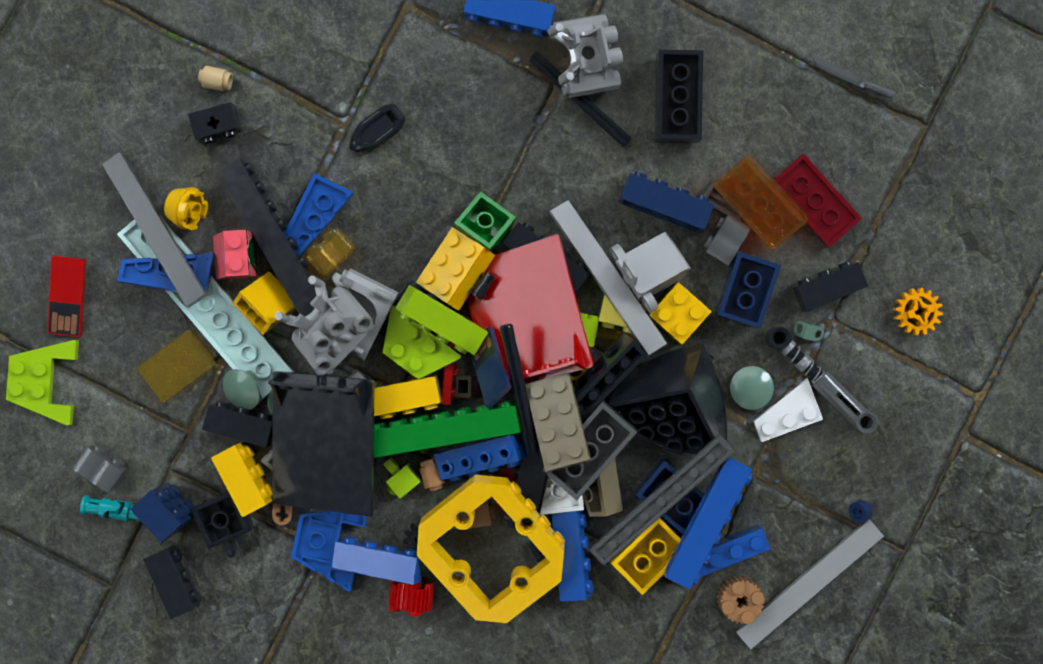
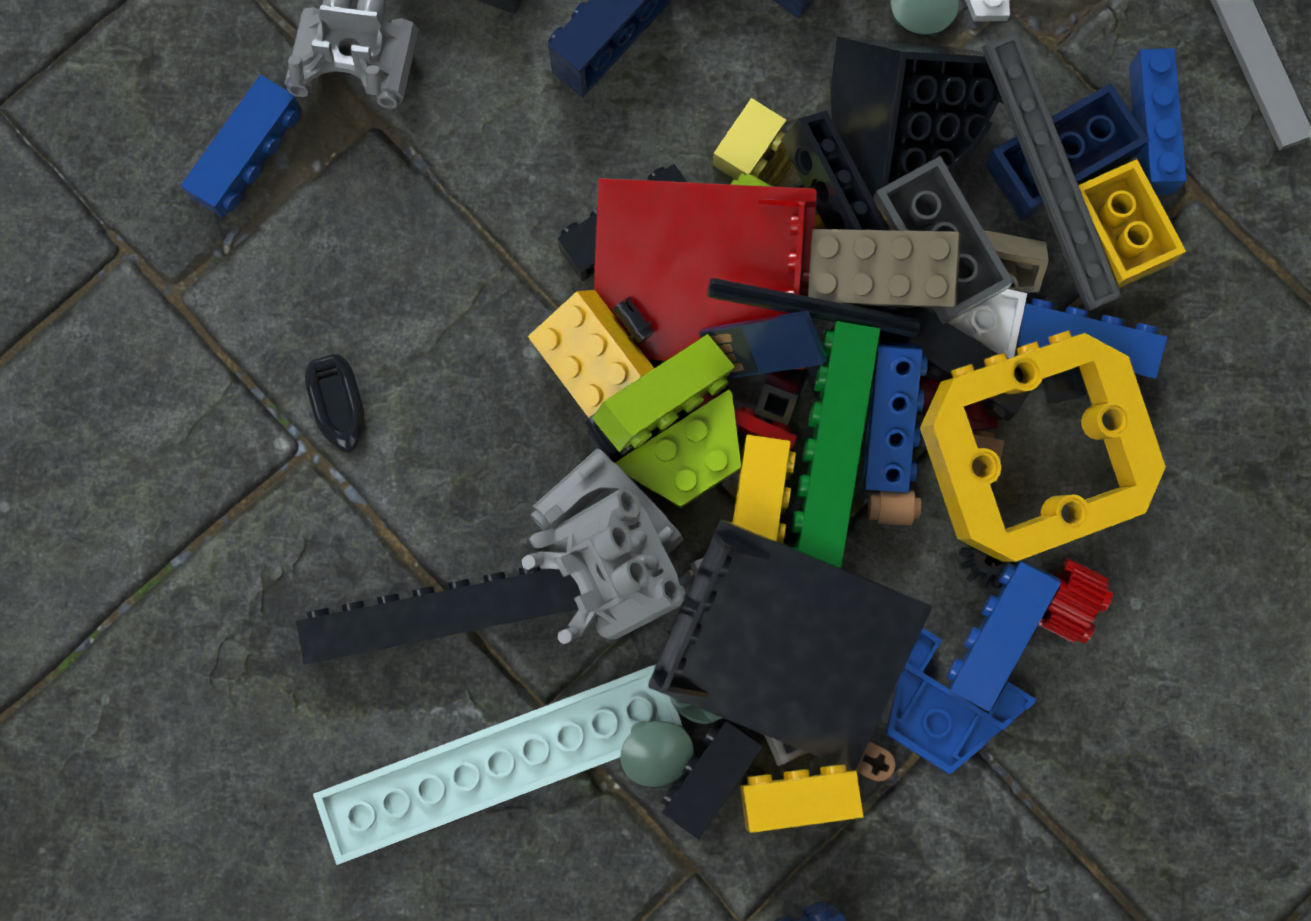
camera: 70 degrees left, 10 degrees down
(151, 274) = (436, 789): blue wing -> none
(154, 230) = (354, 797): tile -> none
(176, 365) = (581, 849): clear yellow tile -> none
(185, 207) = (338, 736): yellow cone -> none
(203, 120) = (221, 624): black brick -> none
(215, 78) = (158, 617): tan brick -> none
(217, 531) = (875, 870): black hinge -> none
(236, 255) = (441, 687): coral slope -> none
(261, 302) = (535, 663): yellow brick -> none
(316, 210) = (421, 535): blue wing -> none
(330, 252) = (494, 535): clear yellow brick -> none
(402, 480) = (886, 554): lime brick -> none
(485, 221) = (537, 281): green slope -> none
(582, 101) = (414, 93): black axle -> none
(608, 278) = (688, 139): light grey tile -> none
(651, 267) = (698, 75): light grey piece -> none
(679, 313) = (779, 61): yellow brick -> none
(707, 523) = (1109, 116): blue brick -> none
(749, 608) = (1236, 120): medium nougat brick -> none

